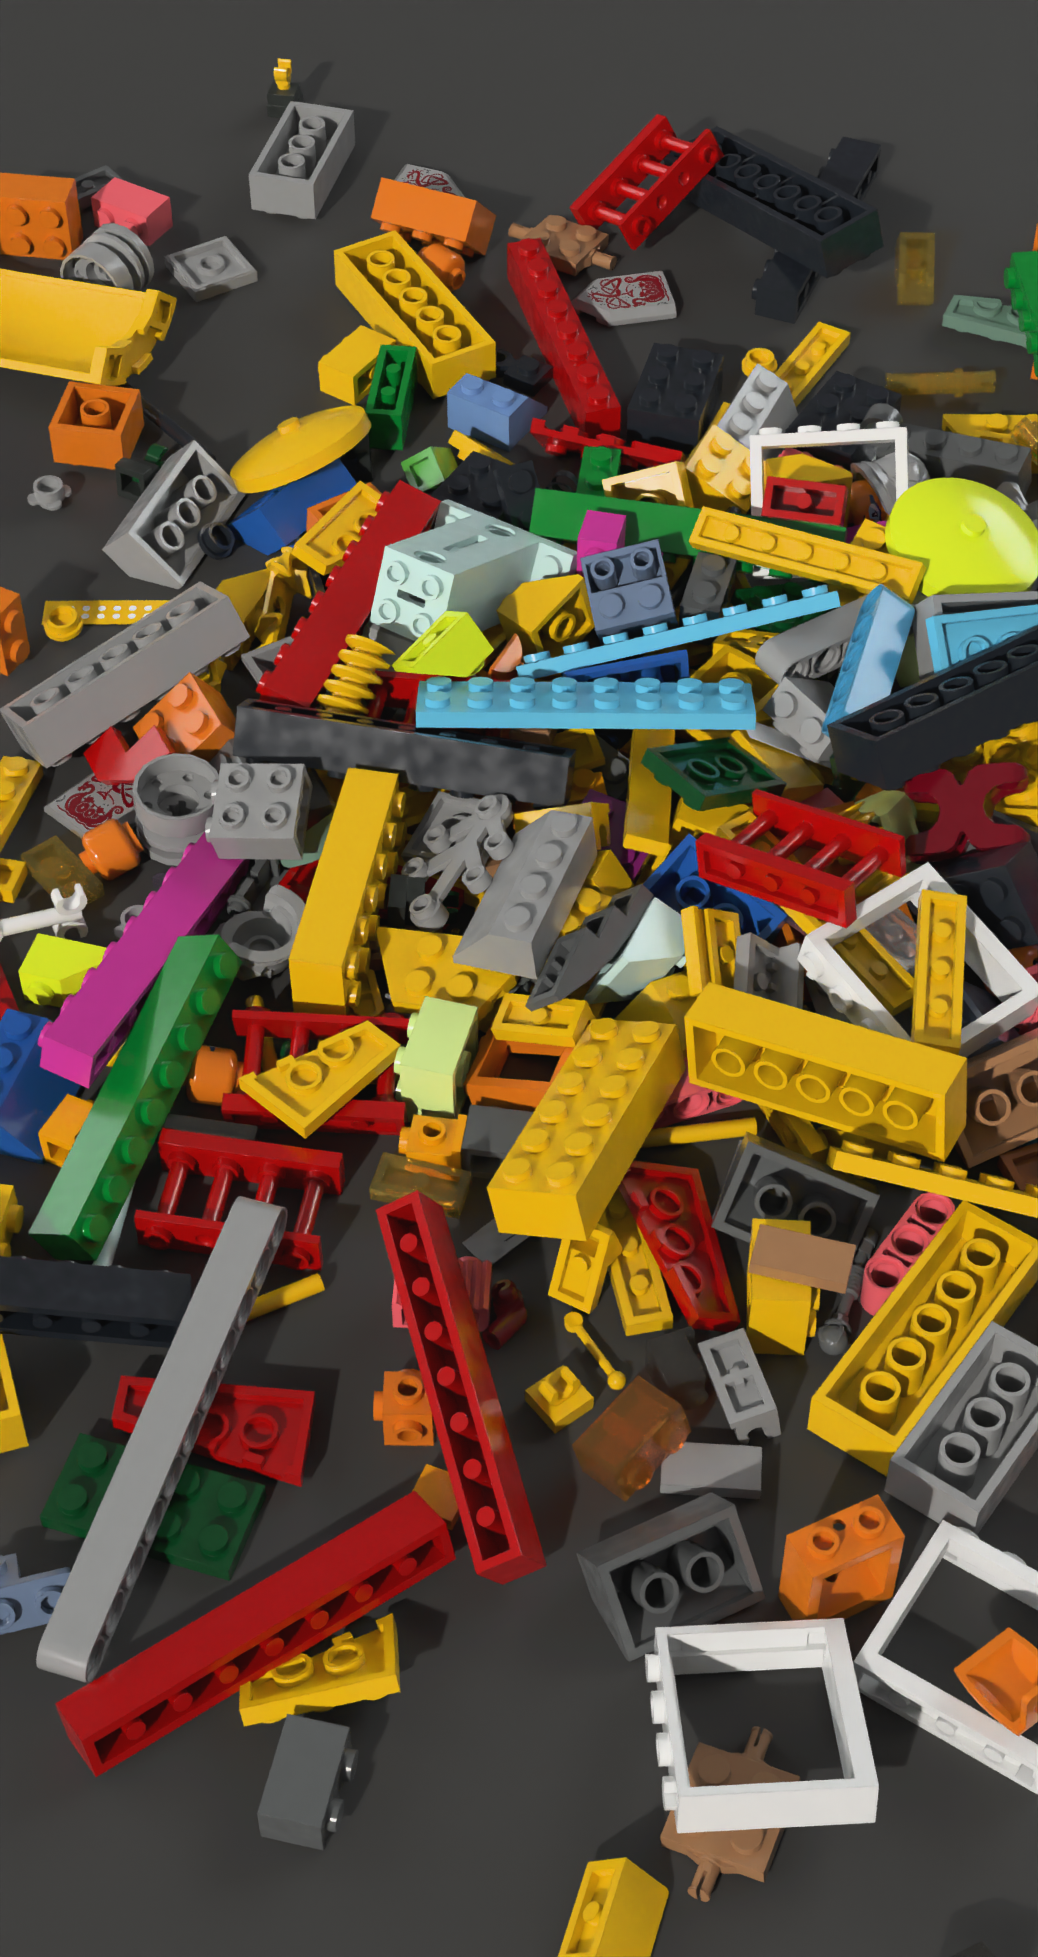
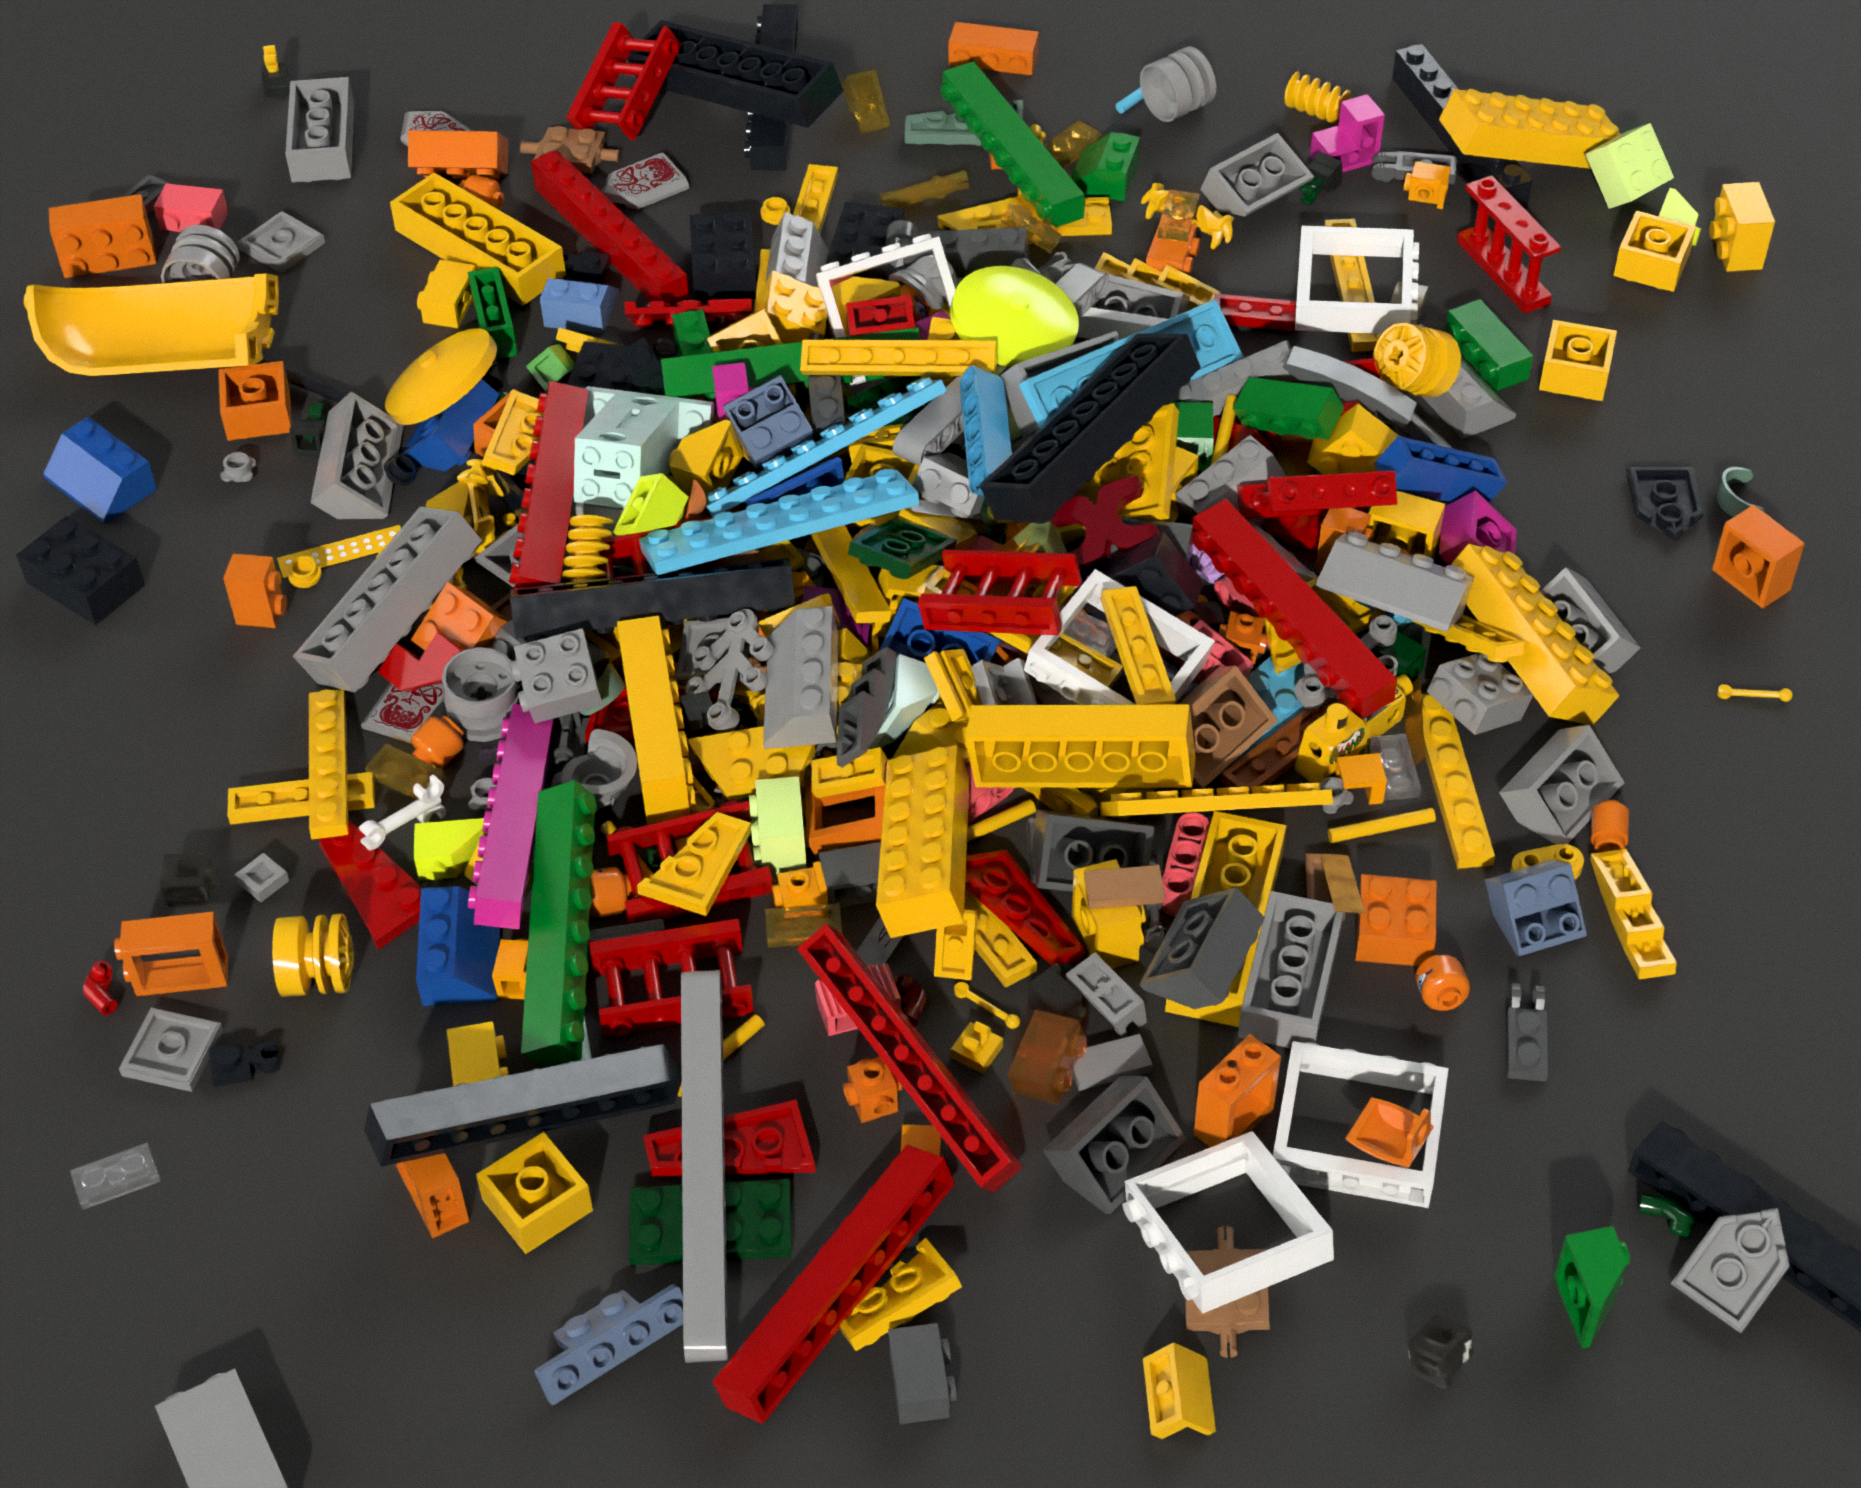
camera: 20 degrees left, 0 degrees up
(872, 1369) = (1204, 949): none -> dark grey slope

